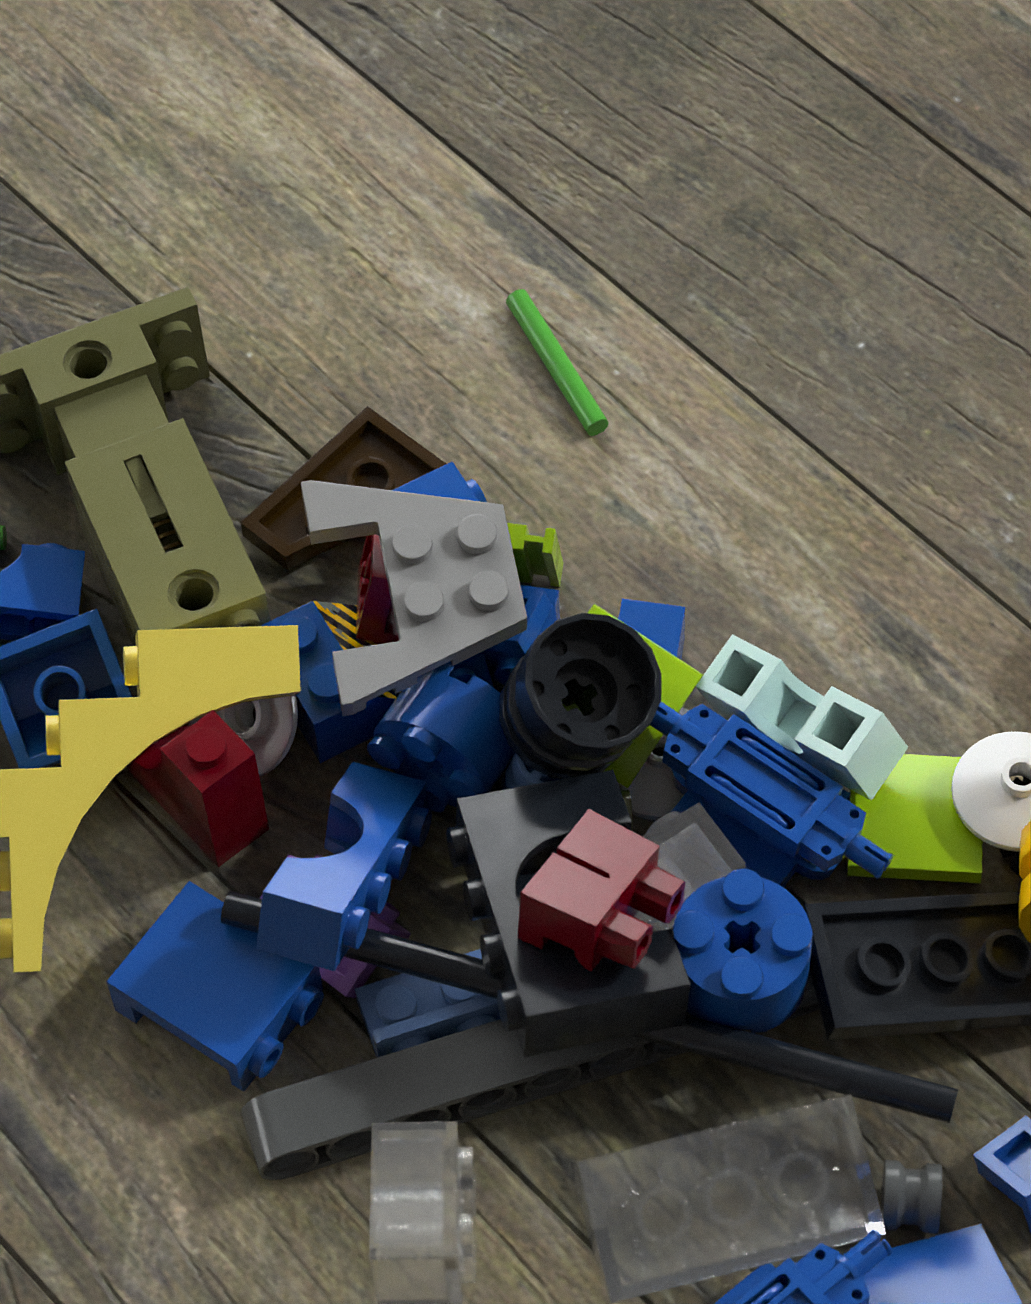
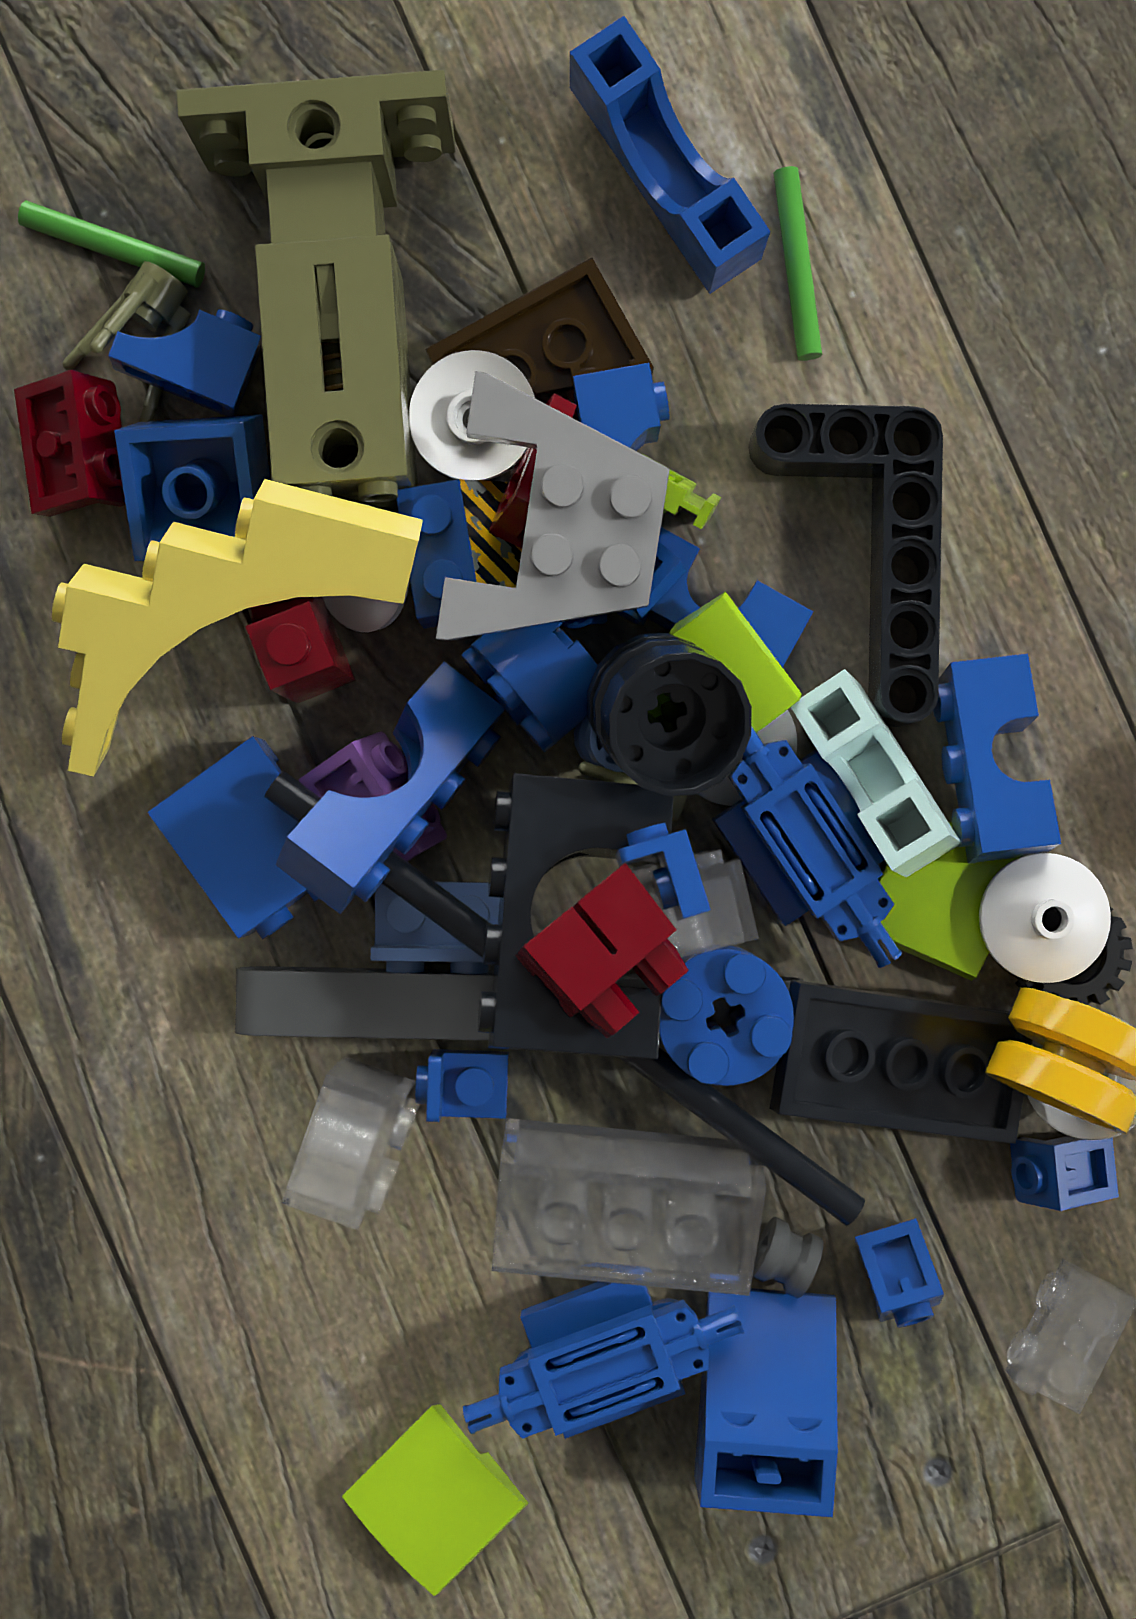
camera: 20 degrees right, 30 degrees up
(280, 545) = (441, 410): none -> white dish
(352, 281) = (631, 110): none -> blue arch
(517, 1151) = (463, 1084): none -> blue bracket
(640, 807) = (678, 879): none -> blue bracket
(713, 487) = (890, 533): none -> black beam
(880, 642) = (994, 812): none -> blue arch

